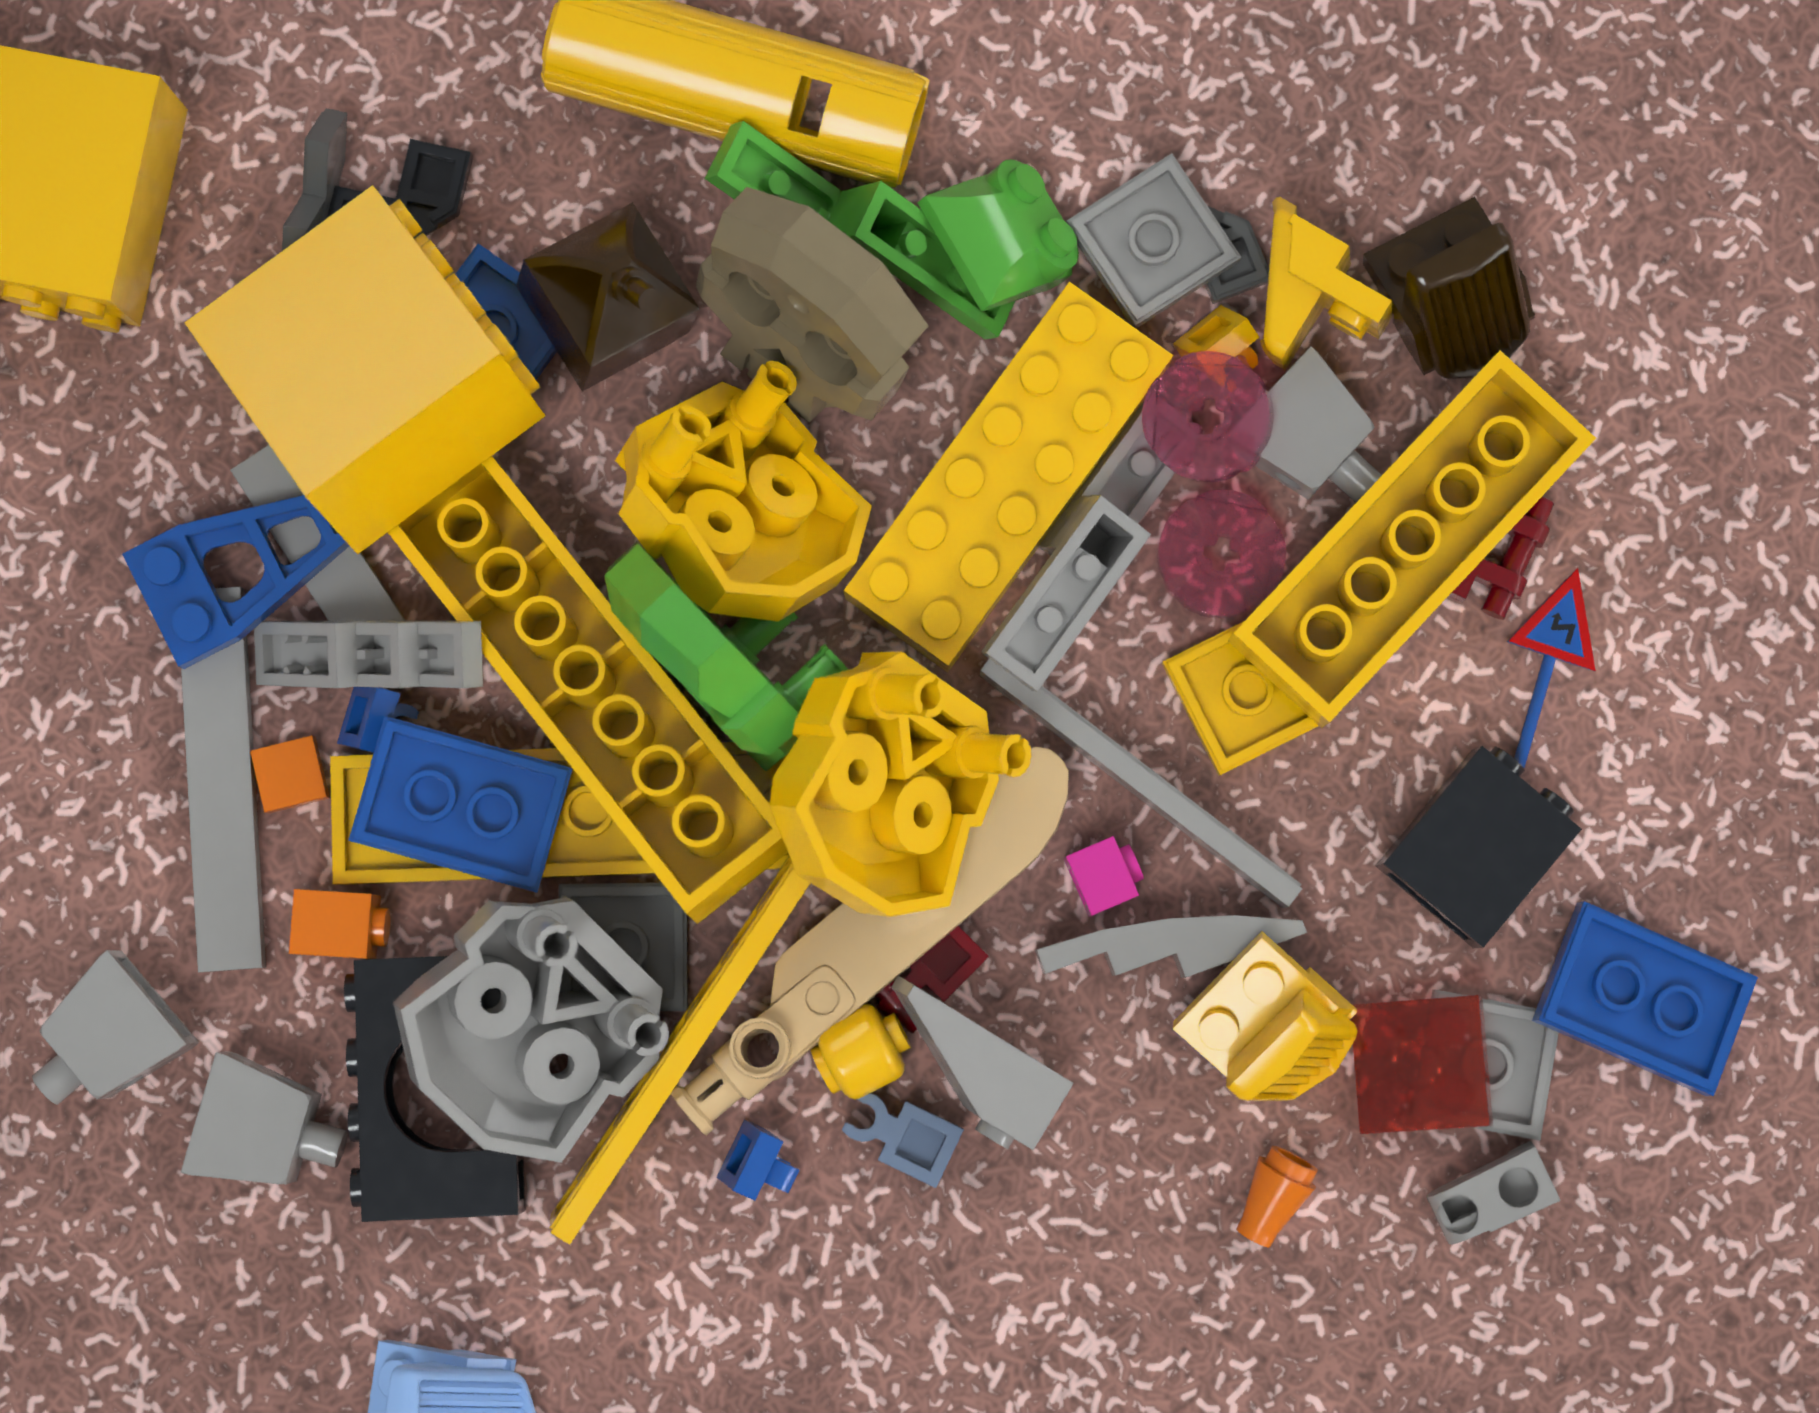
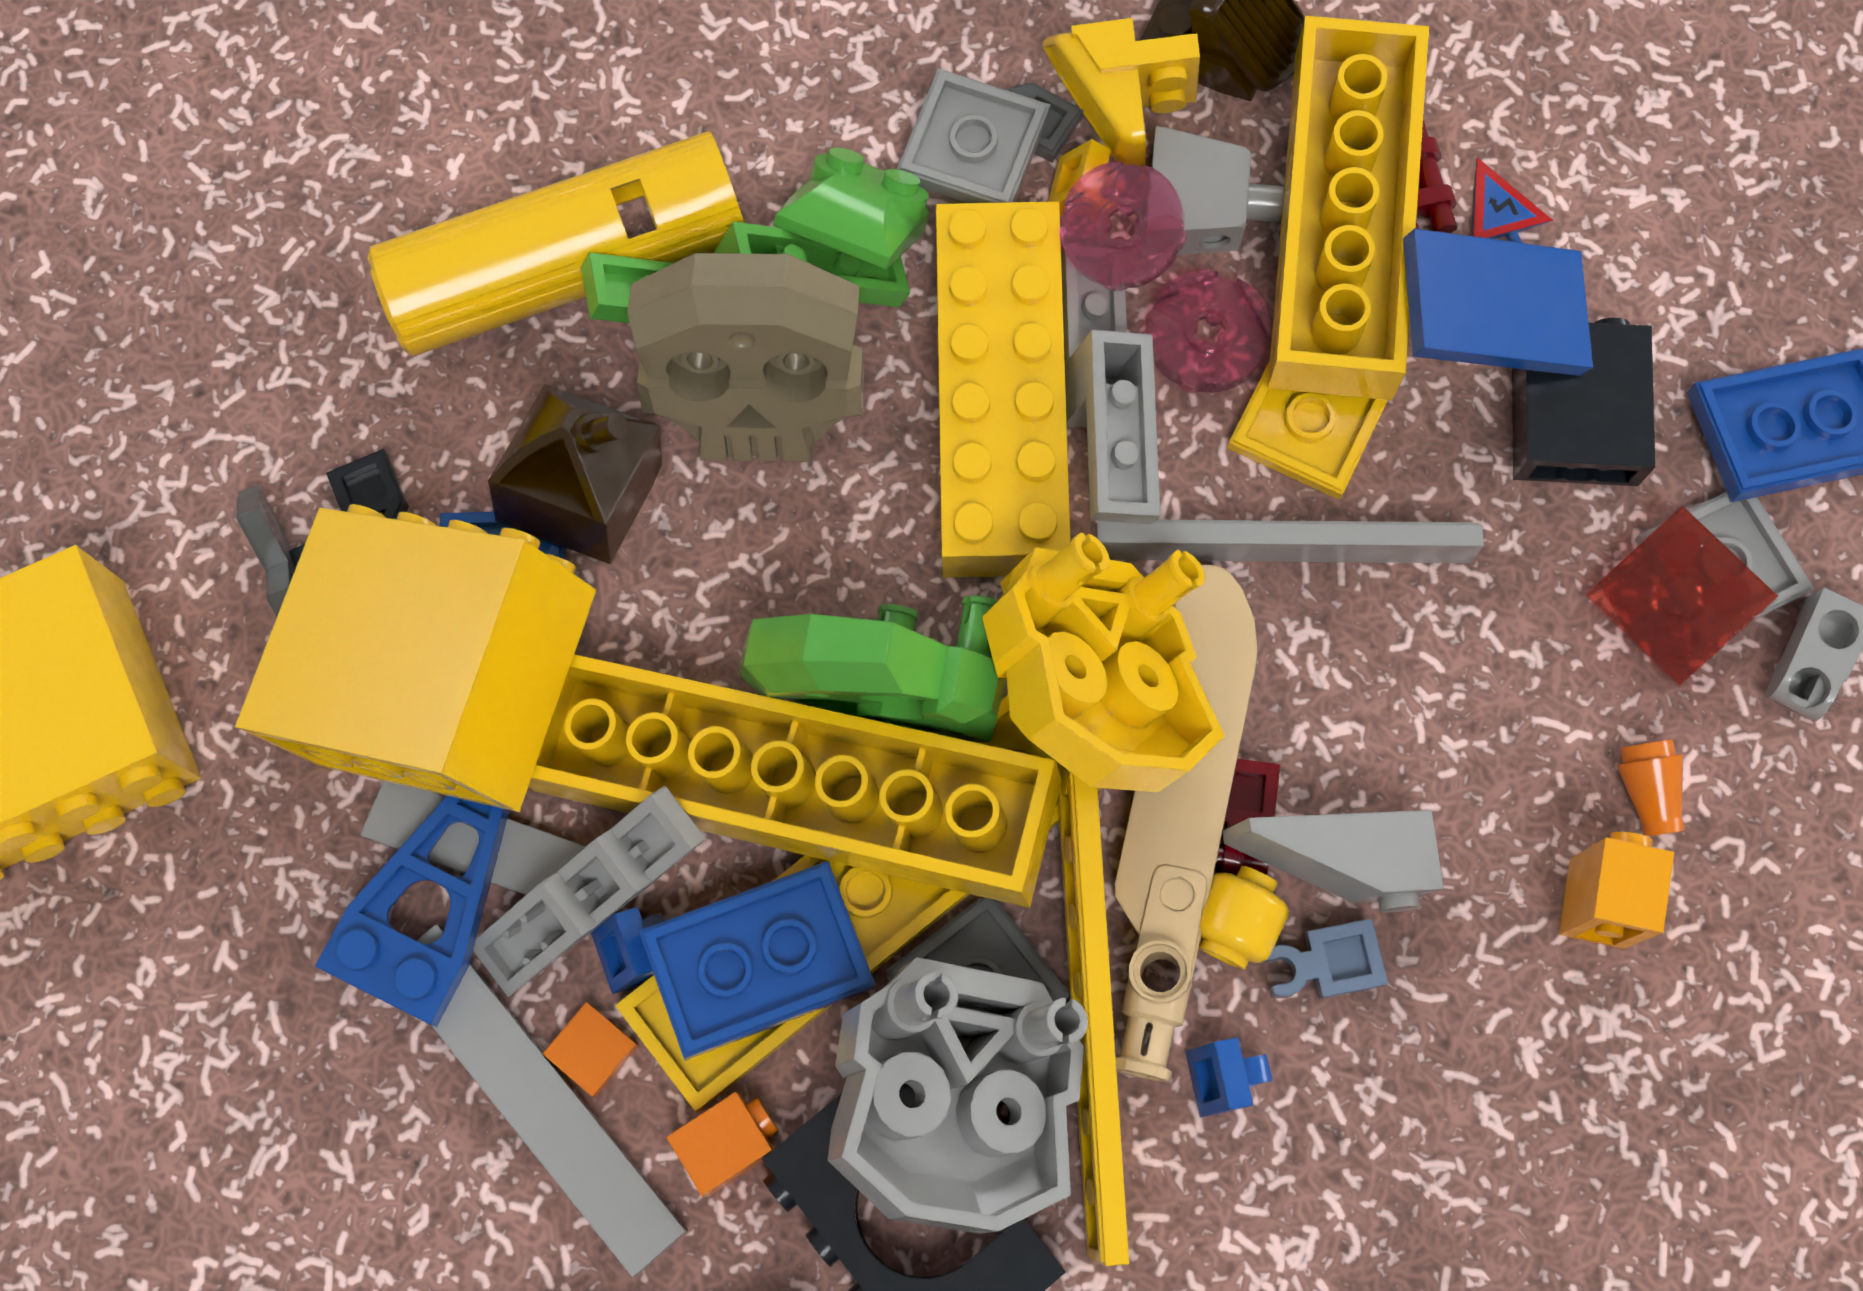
camera: 35 degrees left, 10 degrees down
(722, 467) = (804, 540): yellow brick -> none
(1104, 875) = (1317, 635): dark pink plate -> none
(1165, 1253) = (1617, 891): none -> light orange brick
(1192, 941) = (1424, 637): light grey slope -> none
(1269, 1024) = (1540, 649): yellow piece -> none
(1456, 718) = (1497, 303): none -> blue tile

